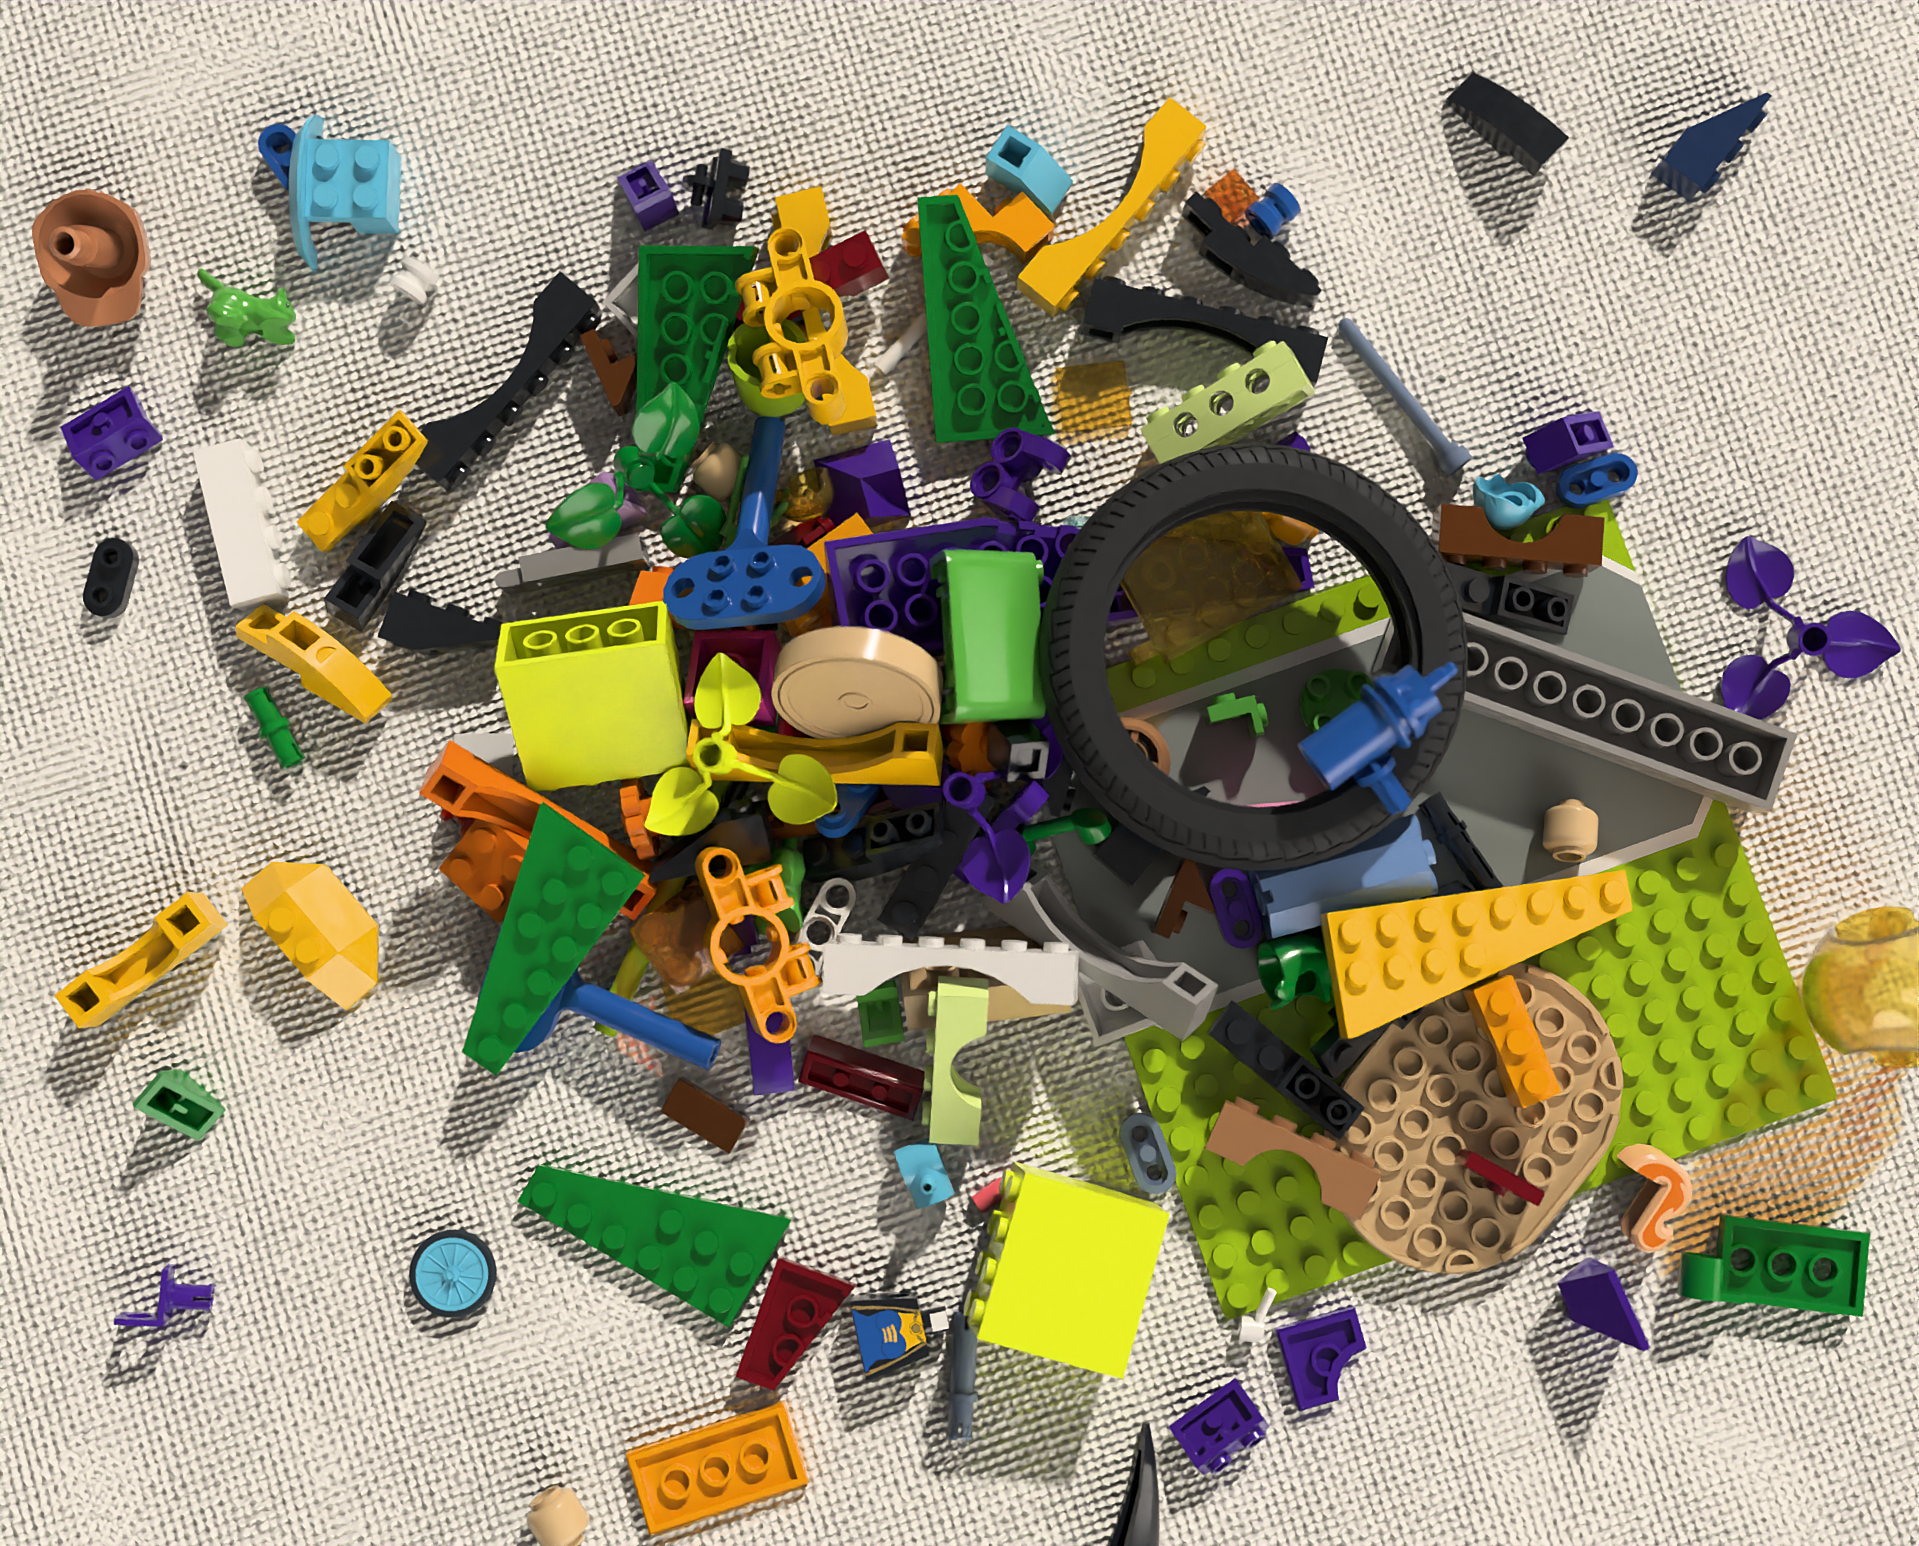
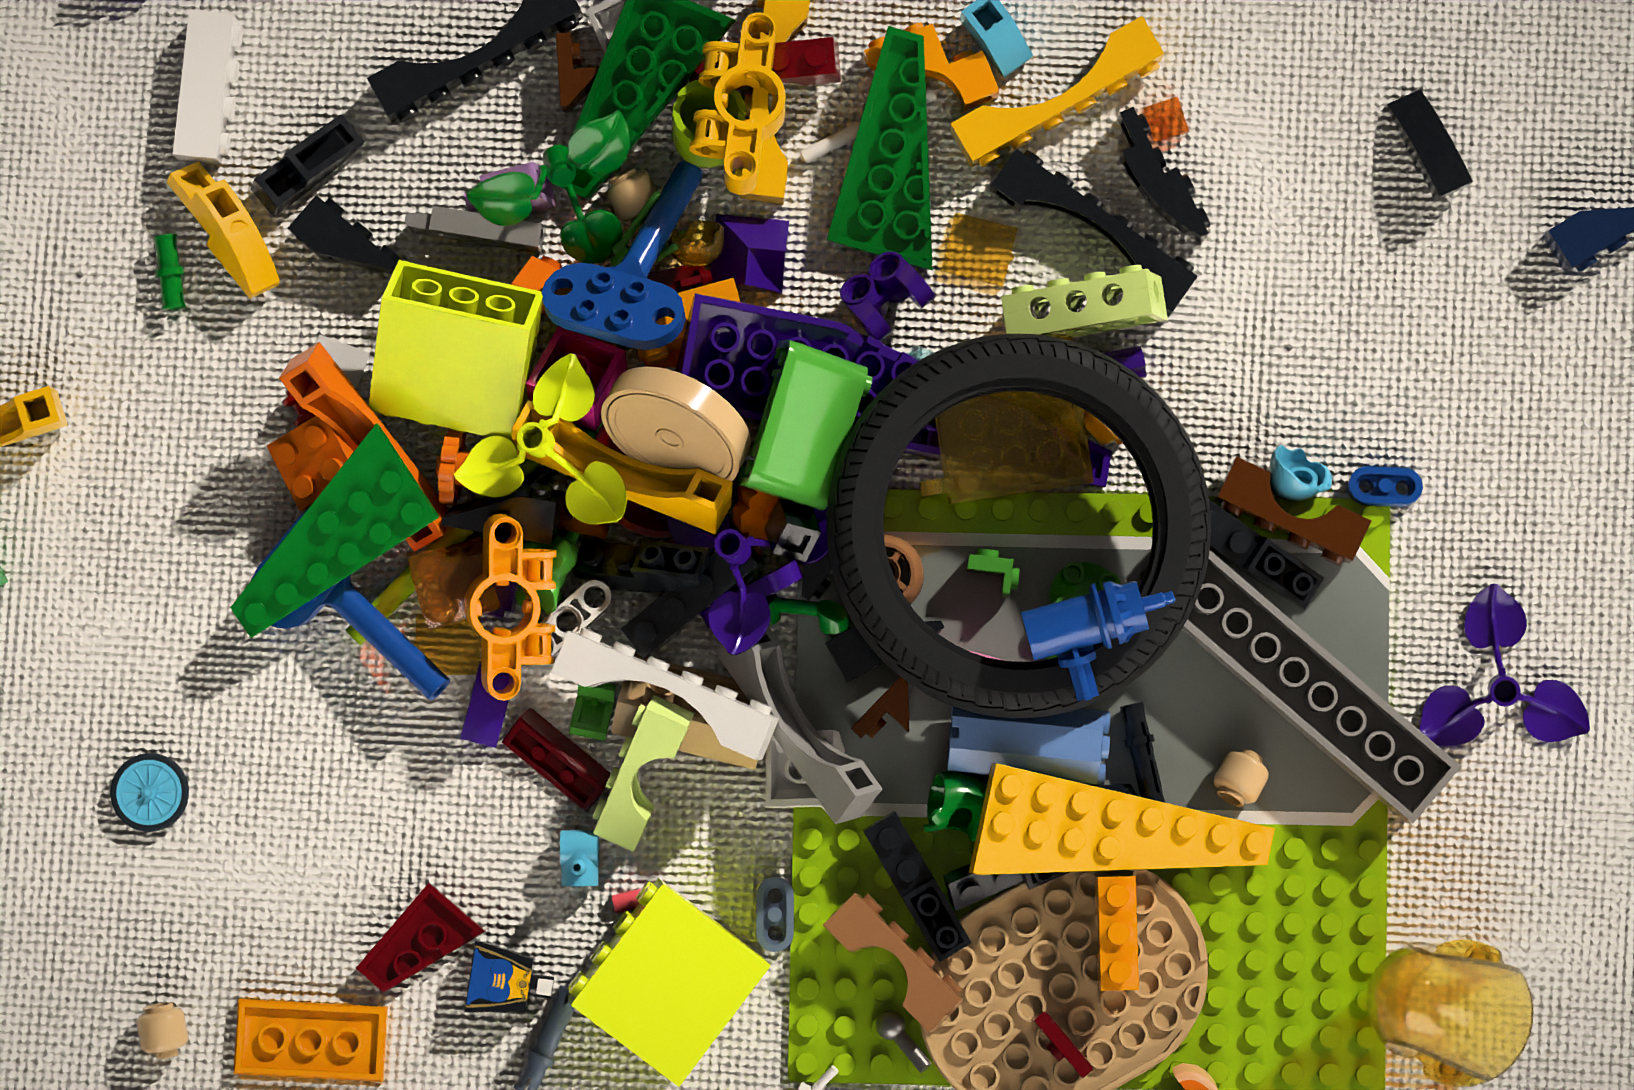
camera: 20 degrees right, 0 degrees up
(114, 578) = (79, 91): black plate -> none
(317, 927) = (144, 456): yellow wedge -> none
(367, 484) = (325, 92): yellow slope -> none
(676, 1240) = (350, 839): green wing -> none
(705, 1114) = (412, 740): reddish brown slope -> none
(853, 803) = (636, 522): blue plate -> none
(1235, 908) = (929, 735): dark purple plate -> none
(1272, 211) = (1195, 147): blue wheel -> none
(1312, 1223) = (892, 1026): none -> flat silver bar
(1450, 455) = (1266, 416): sand blue piece -> none
(1567, 442) = (1373, 443): dark purple slope -> none

